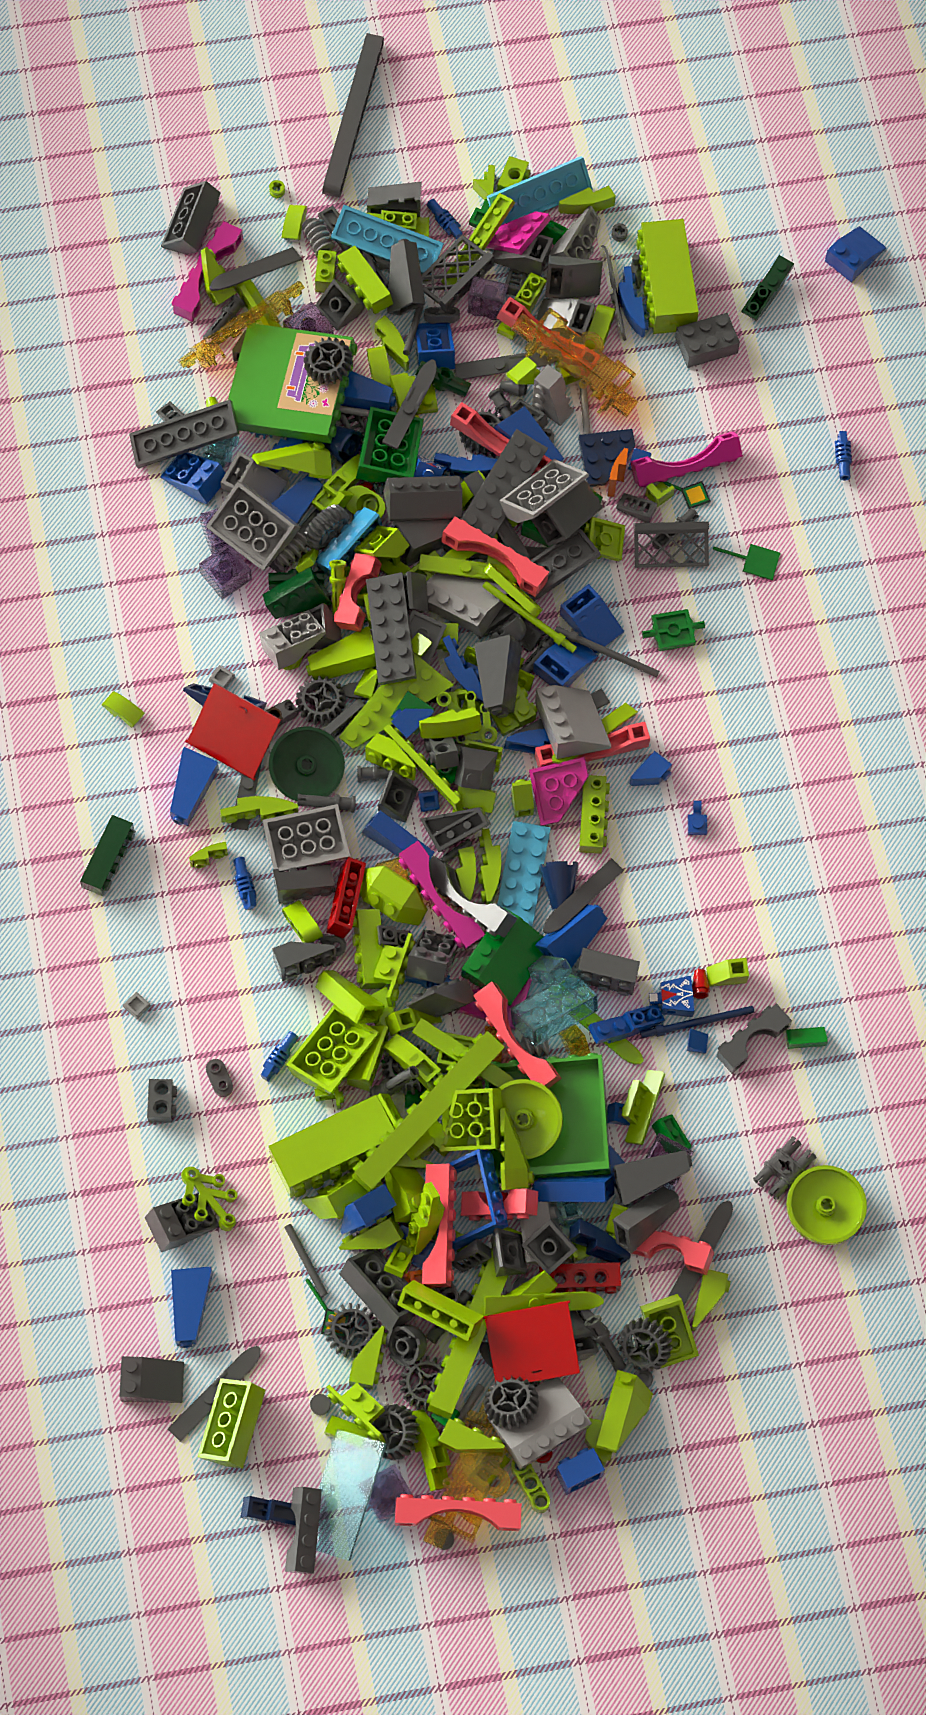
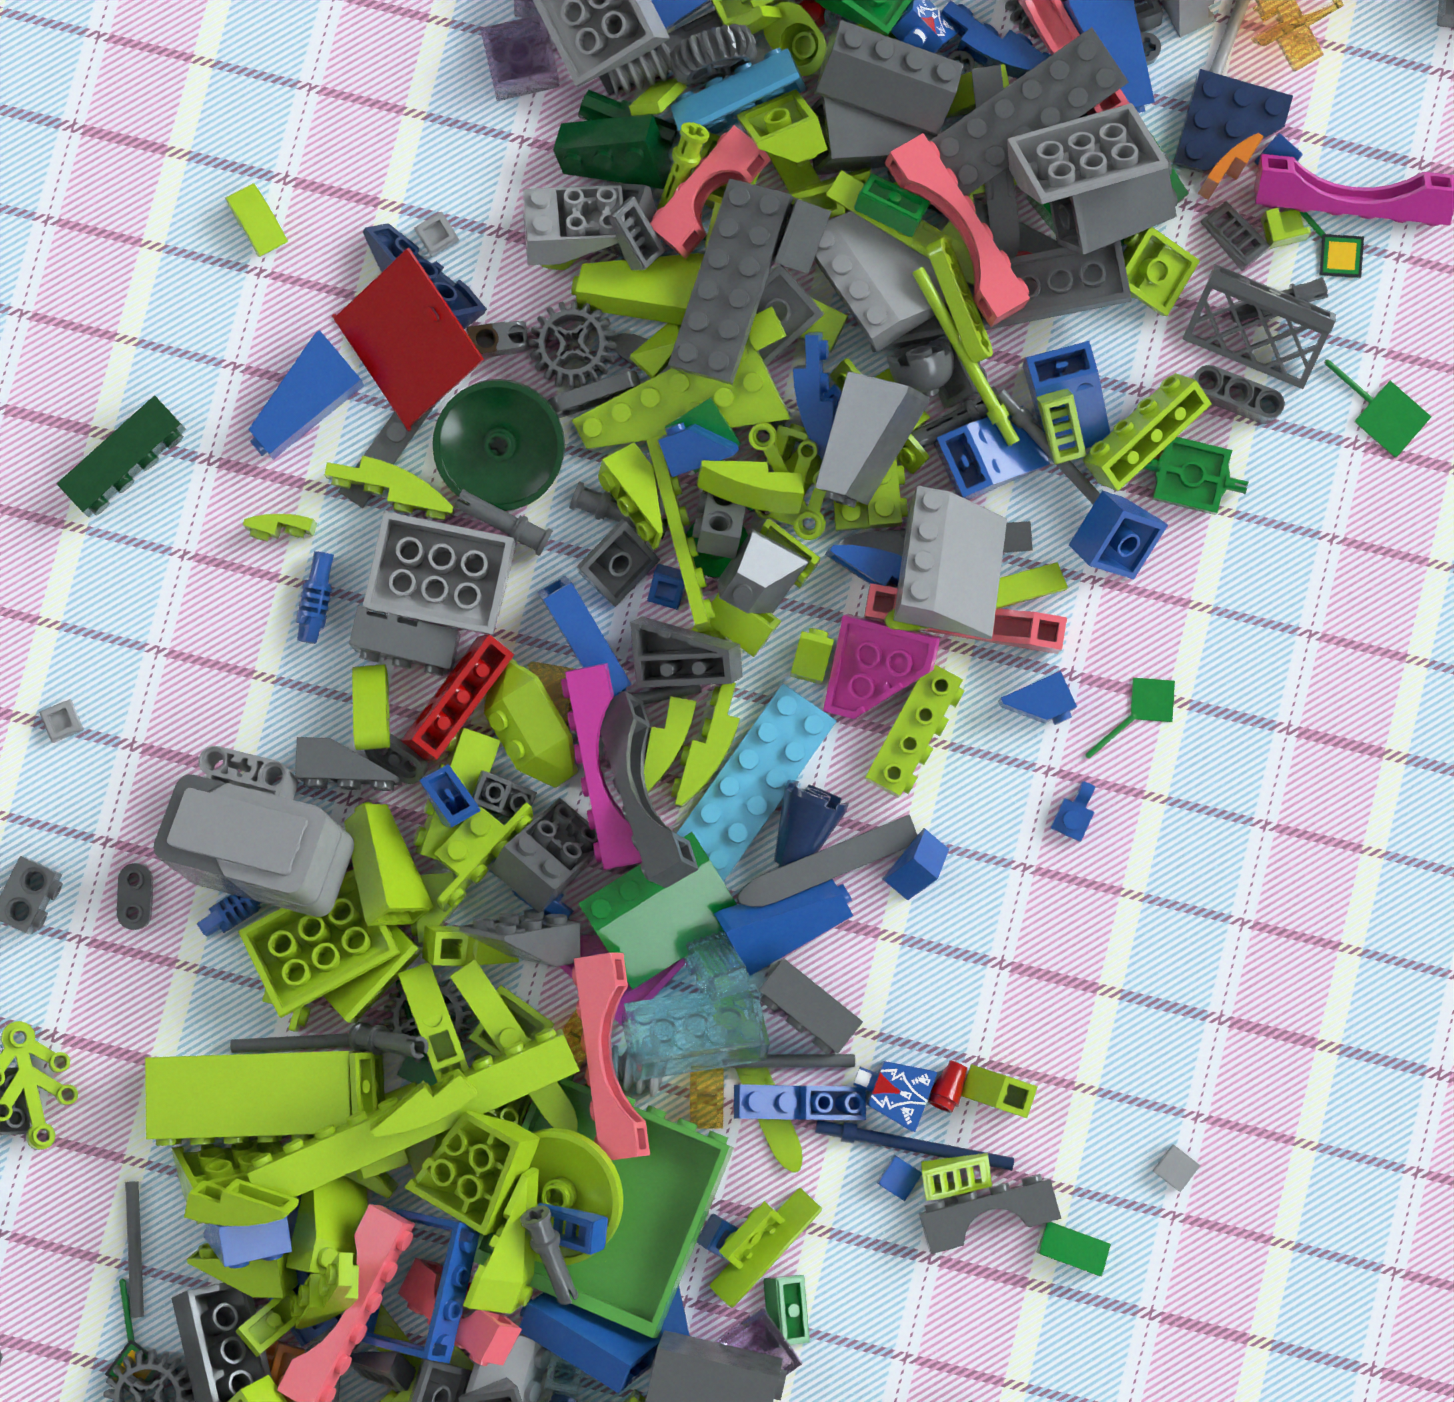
camera: 25 degrees right, 15 degrees up
(273, 1010) = (252, 835): none -> light grey piece
(333, 631) = (647, 237): none -> dark grey slope
(357, 1188) = (237, 1204): none -> lime slope
(367, 945) = (449, 796): none -> blue slope
(433, 1093) = (425, 1105): none -> lime slope
(455, 559) = (891, 205): none -> green slope
(529, 1139) = (546, 1243): none -> dark grey pin
(550, 1124) = (591, 1229): none -> blue slope
(600, 627) = (1055, 399): none -> lime slope
(615, 1005) = (802, 1061): none -> dark grey bar
(628, 881) = (918, 865): none -> blue slope
(639, 616) = (1146, 431): none -> lime brick
(650, 673) = (1117, 535): none -> blue slope
(668, 586) = (1252, 391): none -> dark grey beam
(708, 750) = (1150, 701): none -> green piece
(711, 1028) = (954, 1164): none -> lime slope
(838, 973) = (1176, 1168): none -> light grey tile

